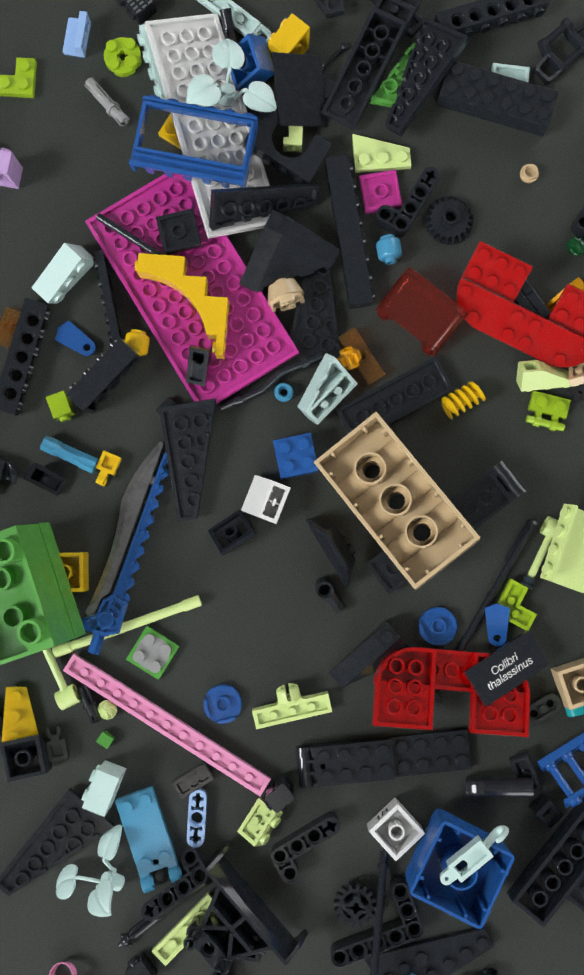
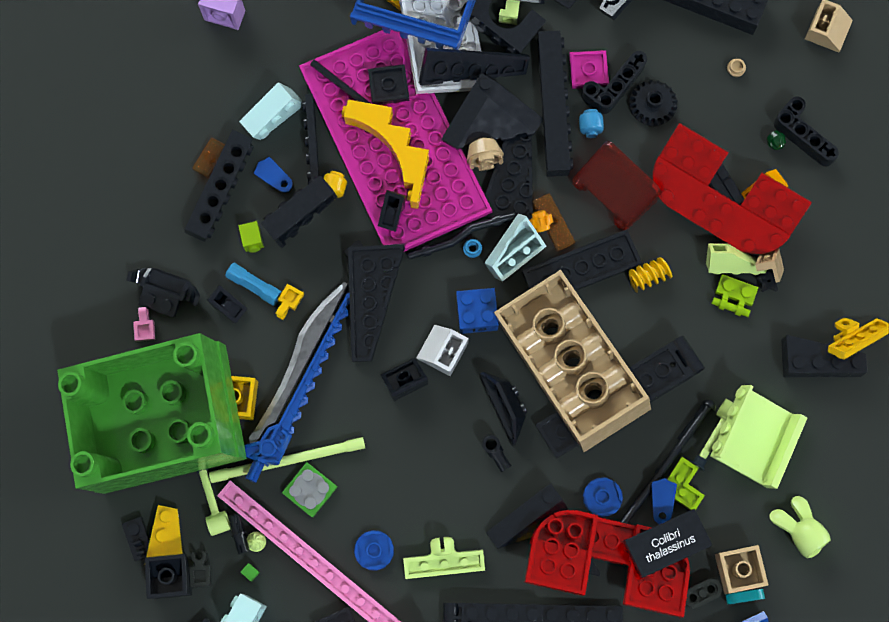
camera: 10 degrees right, 10 degrees down
(377, 155) = (591, 36): yellowish green wing -> none

